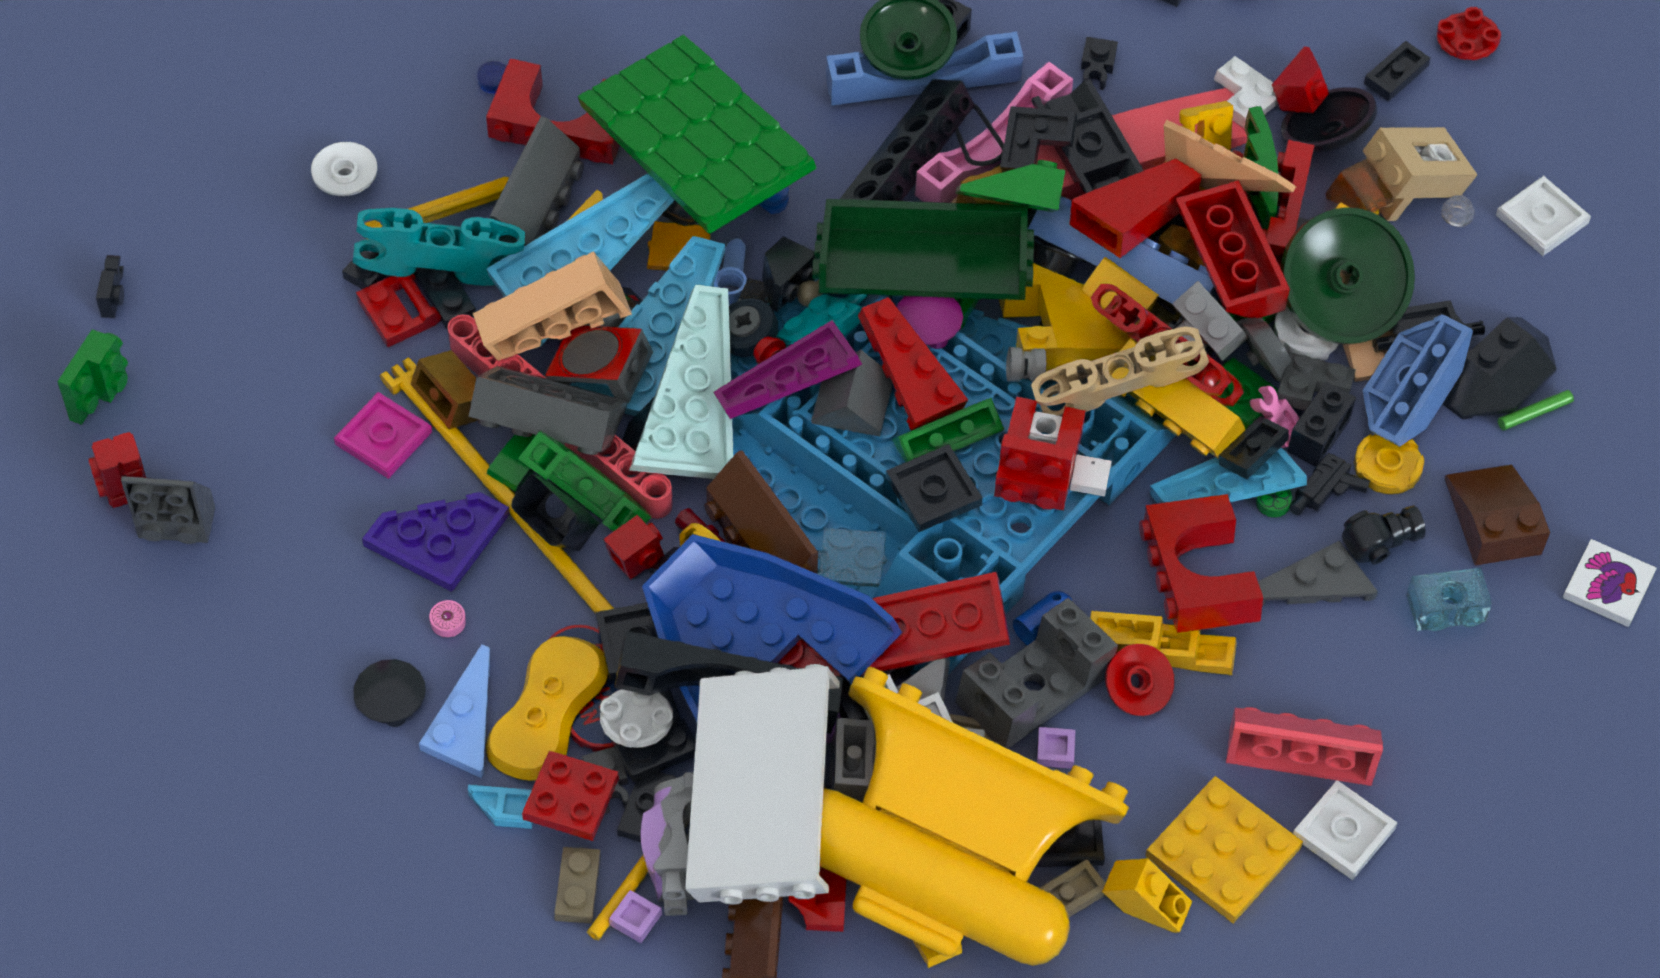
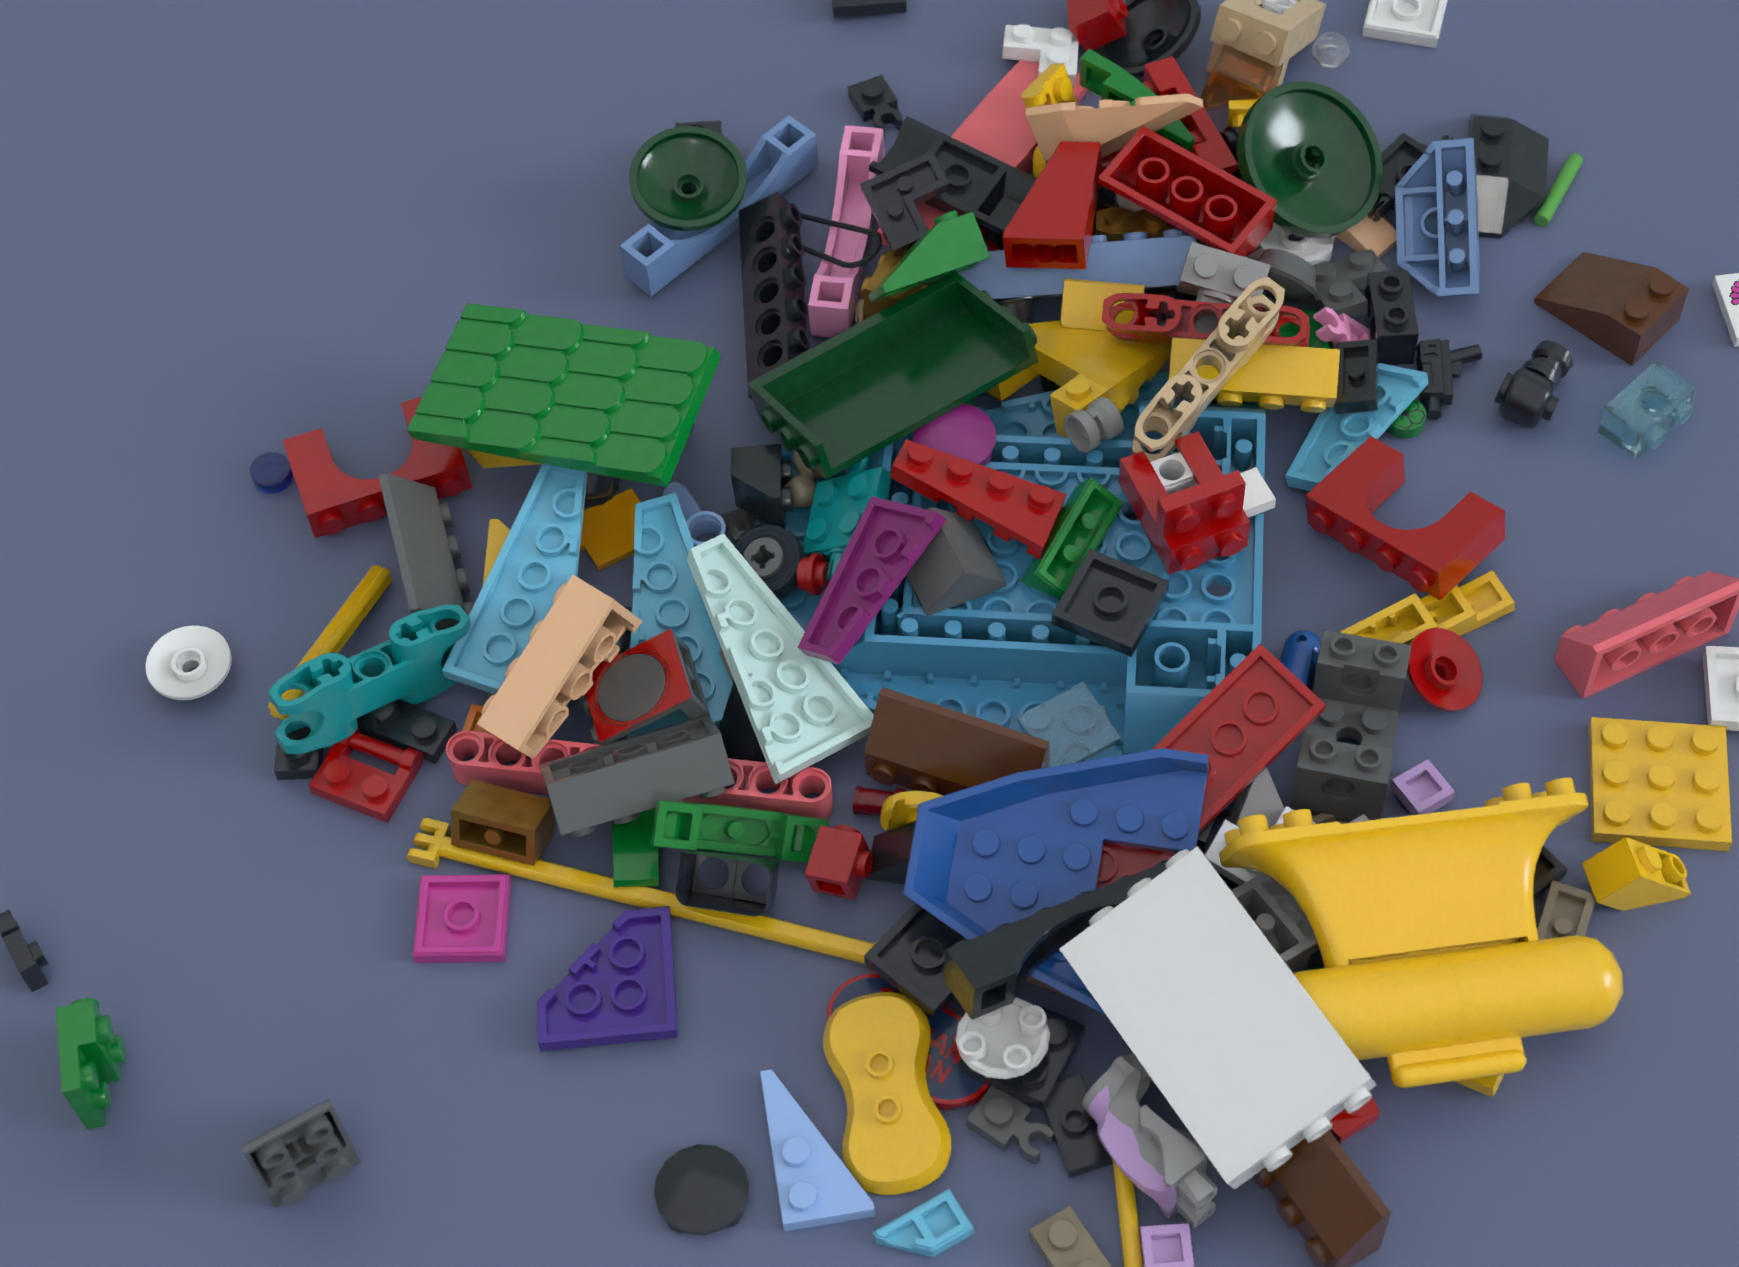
camera: 30 degrees left, 0 degrees up
(111, 462) = (204, 1146): red brick -> none
(447, 618) = (698, 1069): bright pink tile -> none
(570, 795) = (1002, 1168): red plate -> none
(1318, 577) = (1517, 460): dark grey wing -> none
(1387, 465) = (1476, 319): yellow tile -> none

